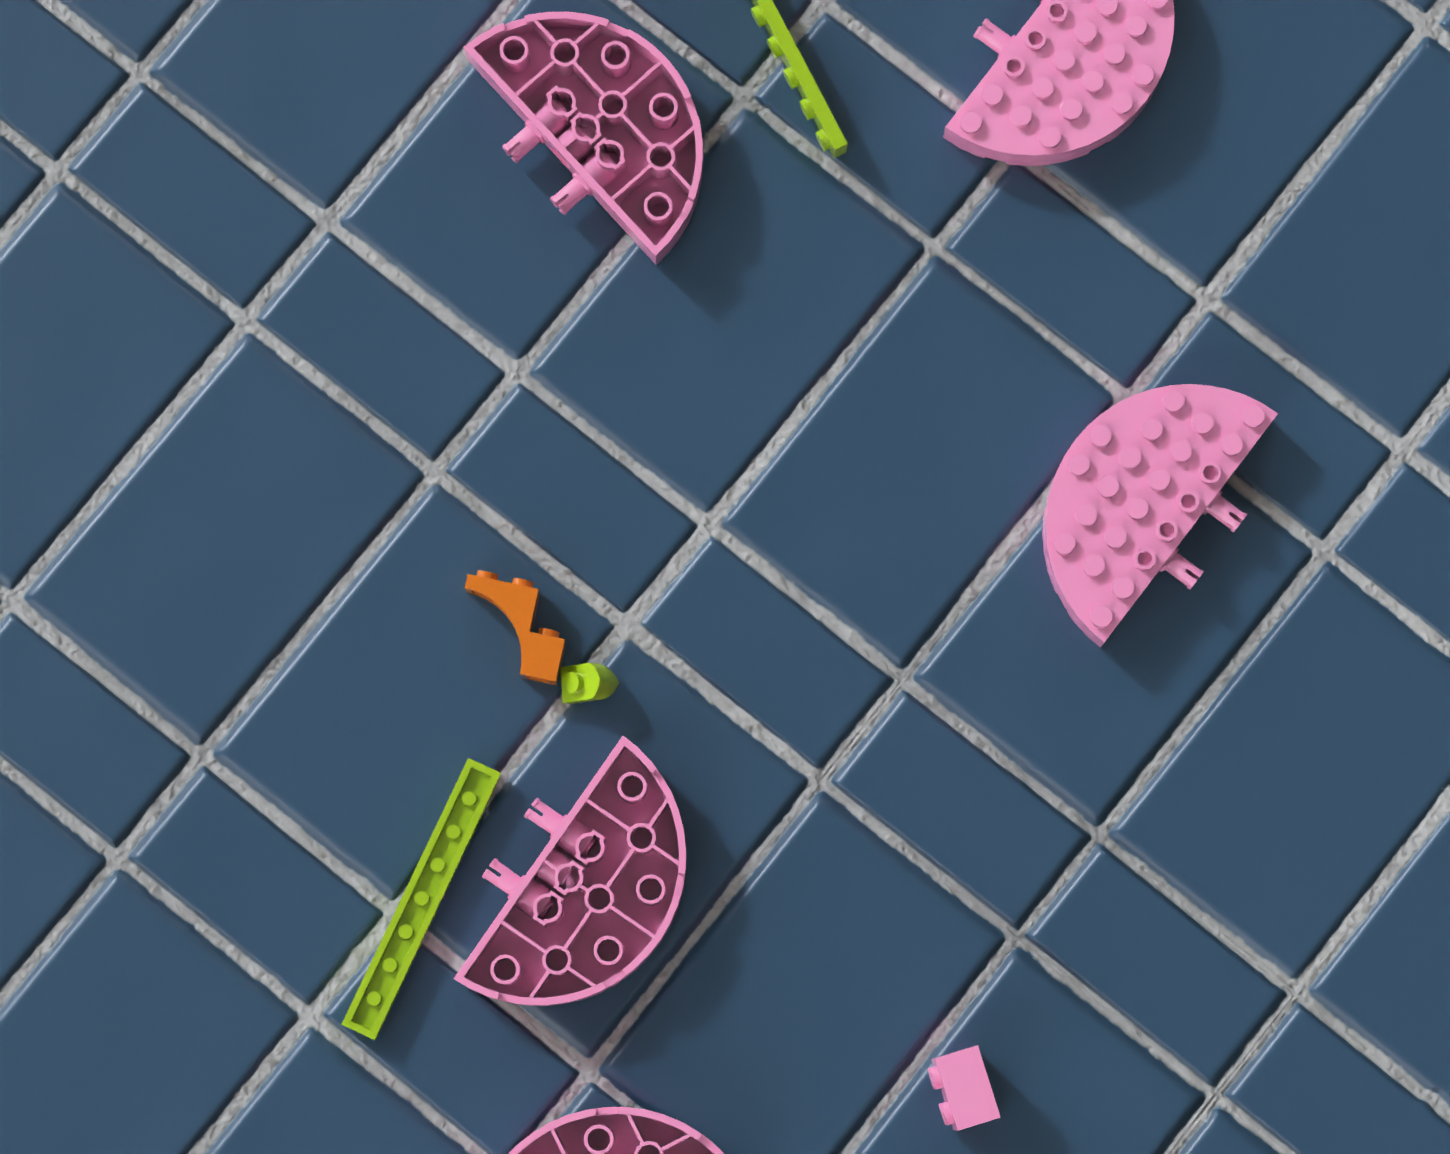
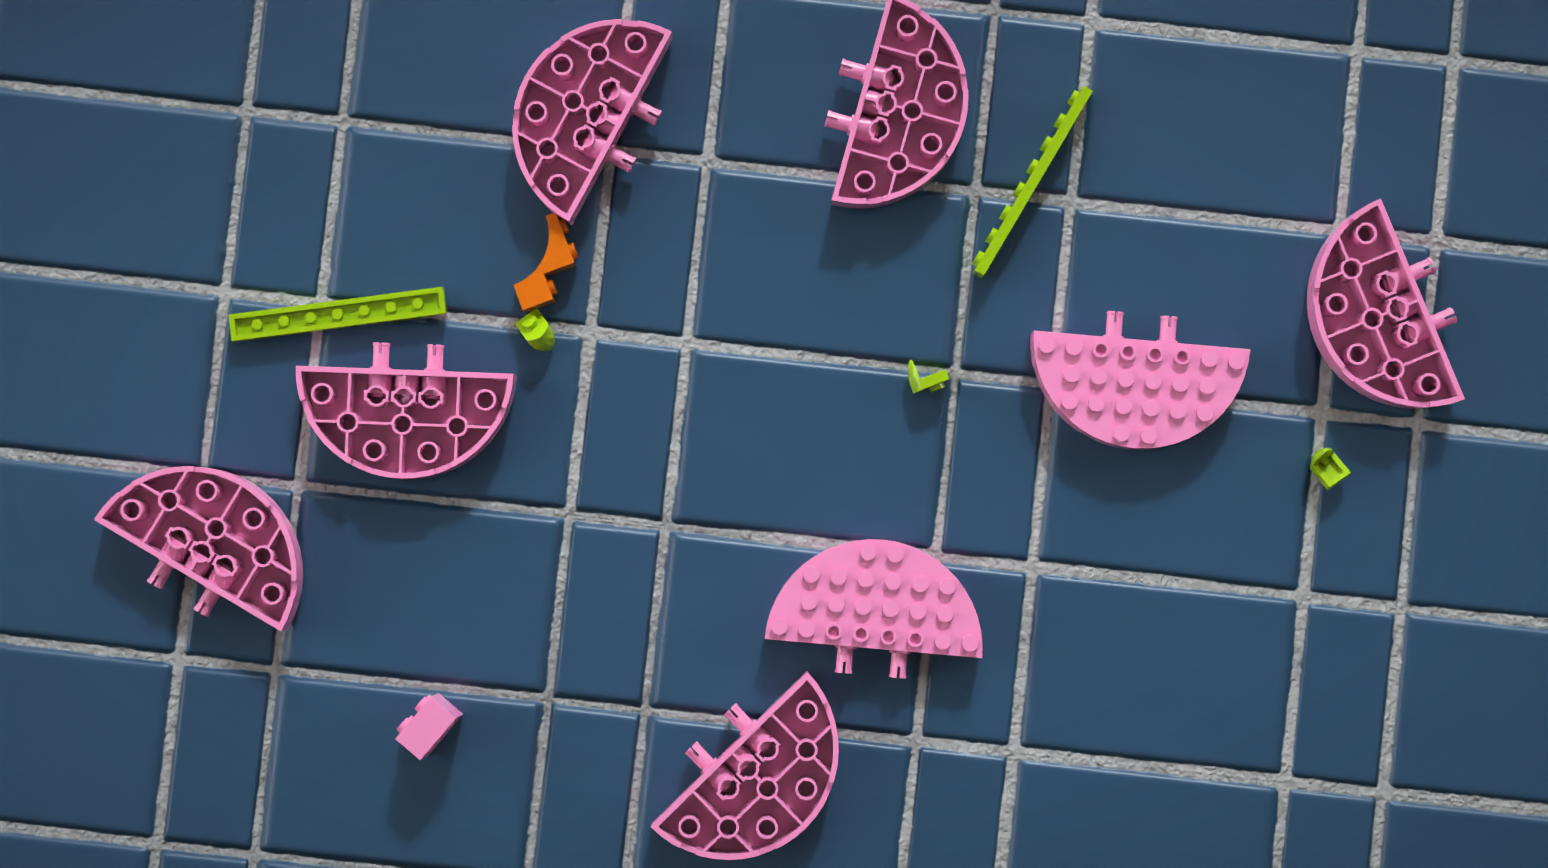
camera: 55 degrees right, 5 degrees up
(363, 473) = (579, 105): none -> bright pink brick
(930, 276) = (933, 382): none -> lime plate
(1266, 747) = (763, 784): none -> bright pink brick

